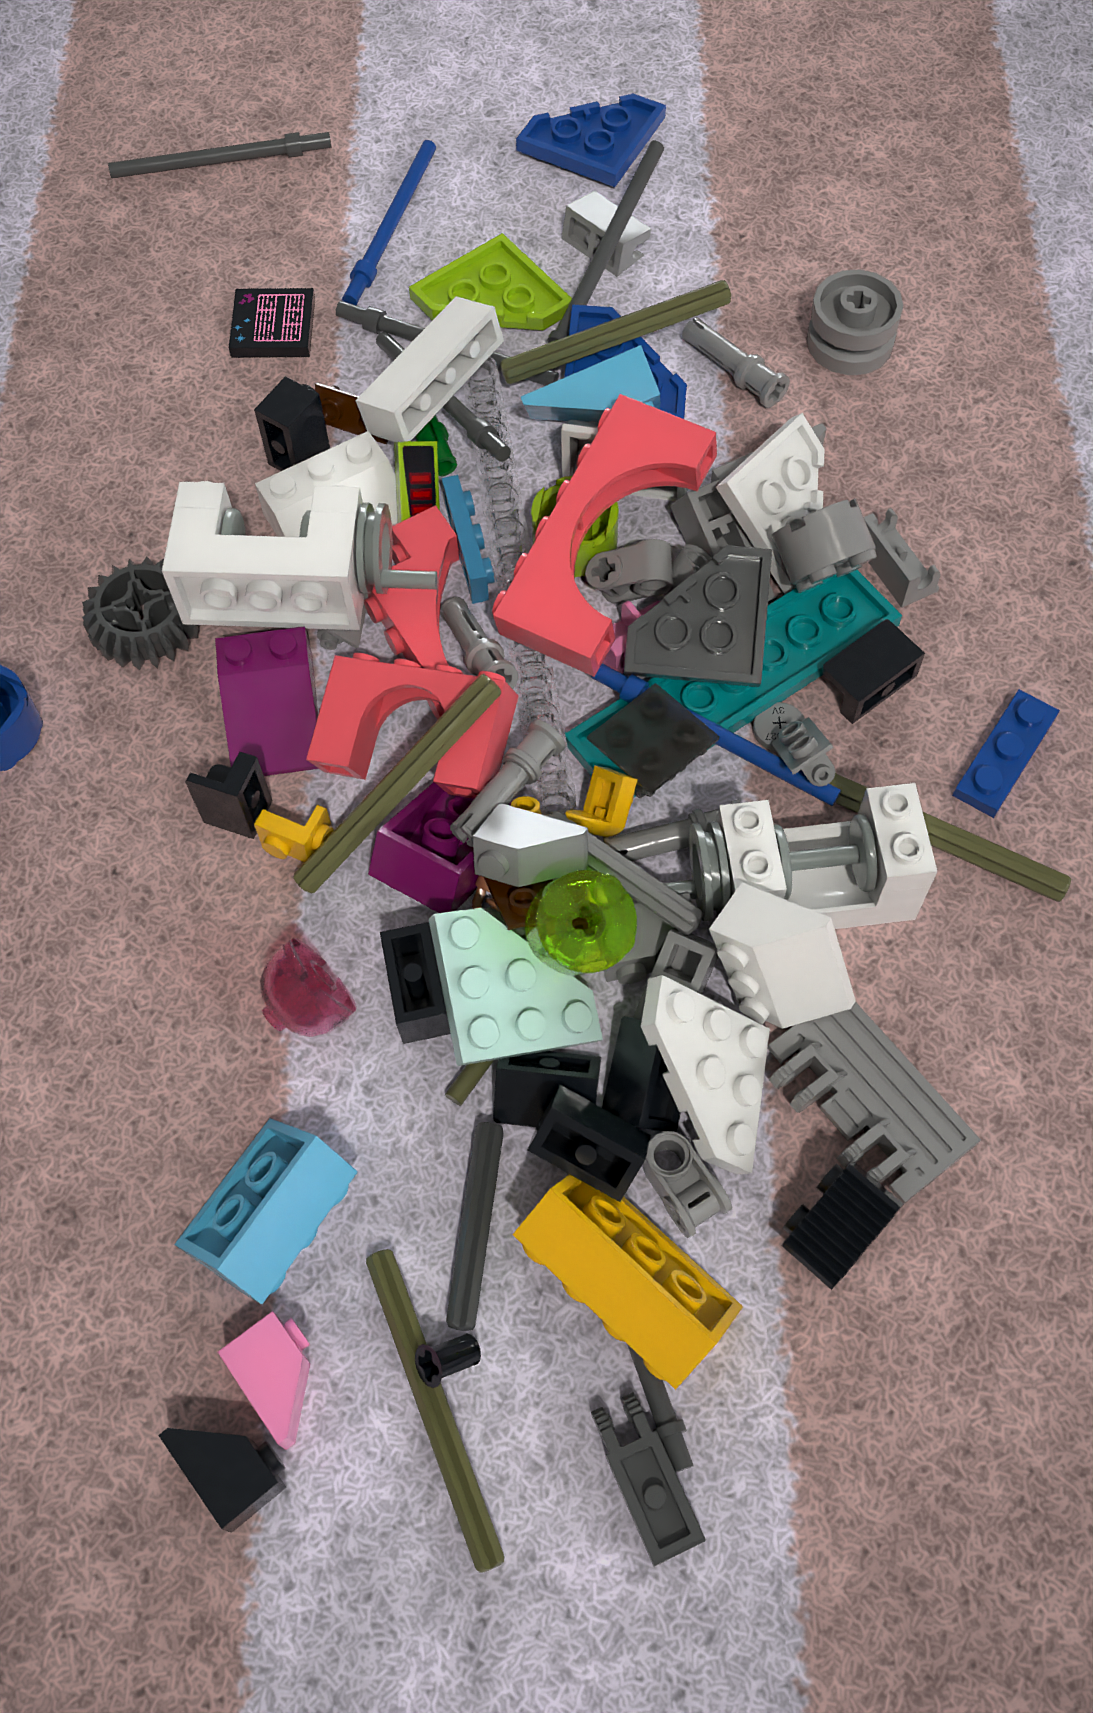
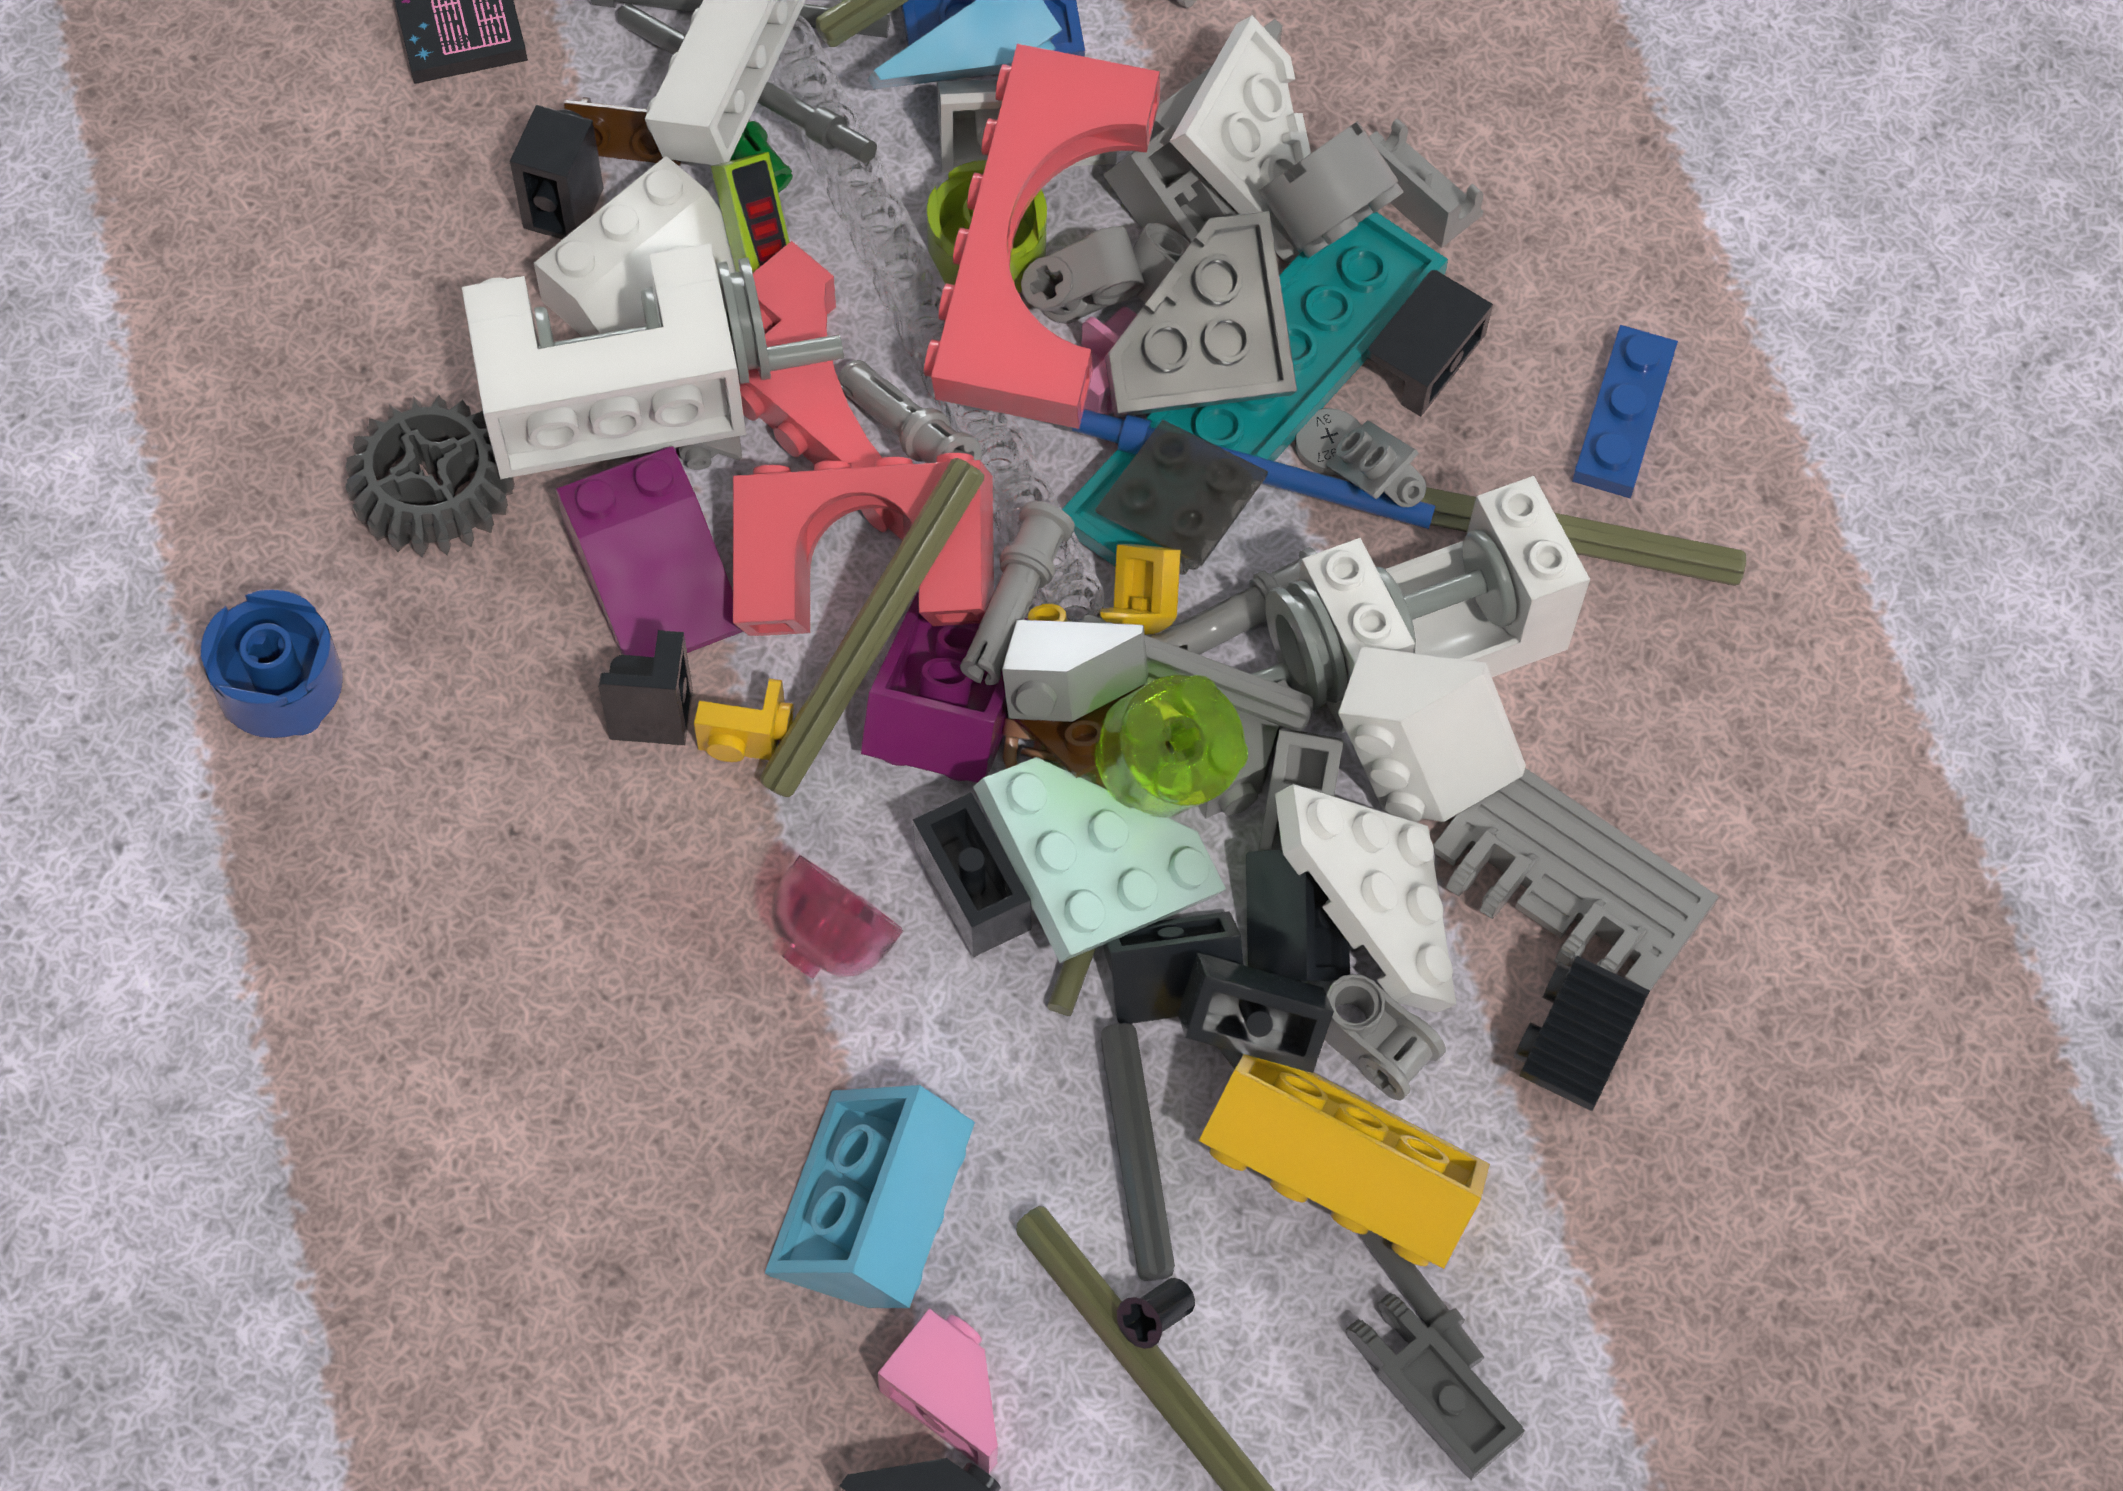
camera: 20 degrees left, 0 degrees up
(470, 539) = (867, 317): dark azure plate -> none

